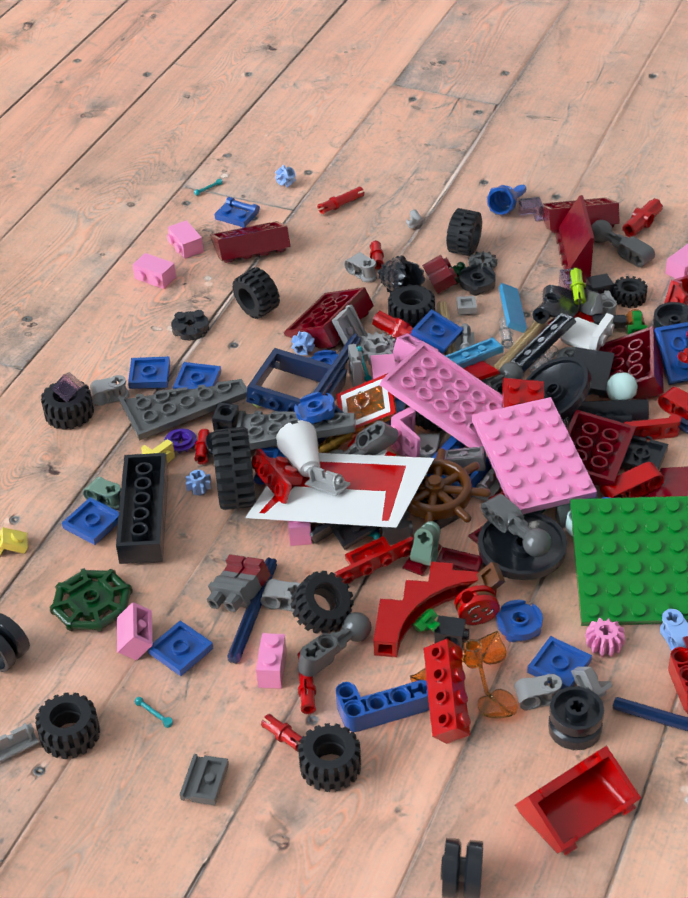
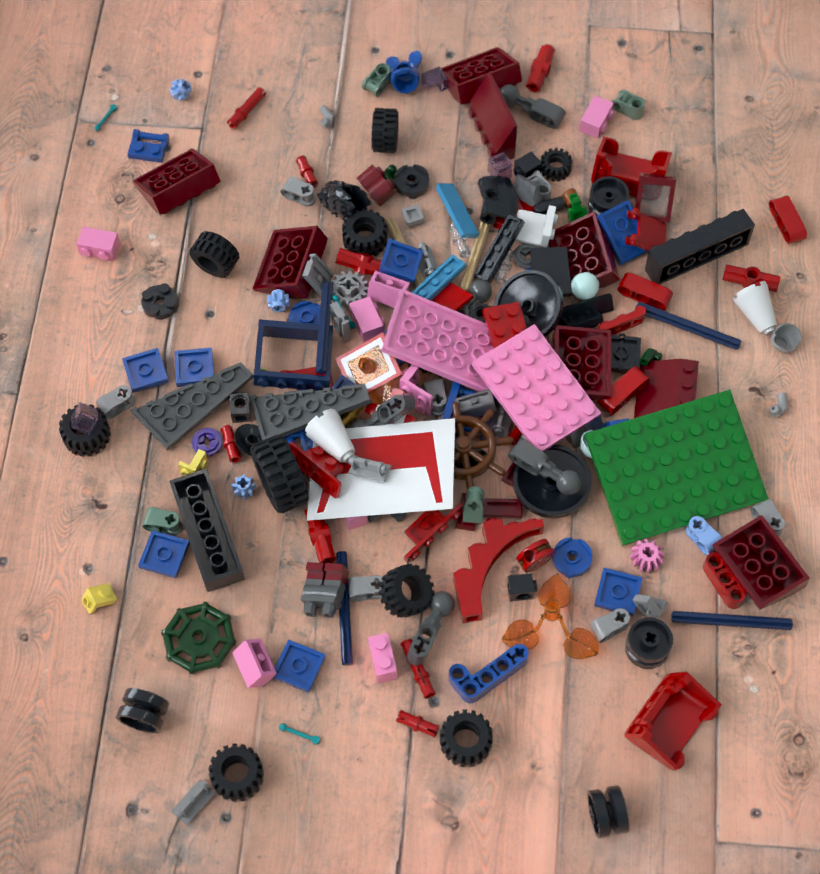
camera: 20 degrees left, 20 degrees up
(185, 239) = (112, 195): bright pink brick -> none
(204, 779) = (370, 787): dark grey plate -> none
(256, 538) = (321, 539): none -> red piece
(315, 407) = (331, 394): blue plate -> none
(426, 621) = (497, 582): green plate -> none
(446, 691) = (541, 650): red brick -> none
(475, 199) = (378, 79): none -> sand green piece
(490, 260) = (402, 158): dark grey gear -> none
(490, 576) = (538, 530): reddish brown plate -> none
(577, 286) = (511, 175): lime axle -> none
(672, 461) = (650, 355): none -> dark green arm

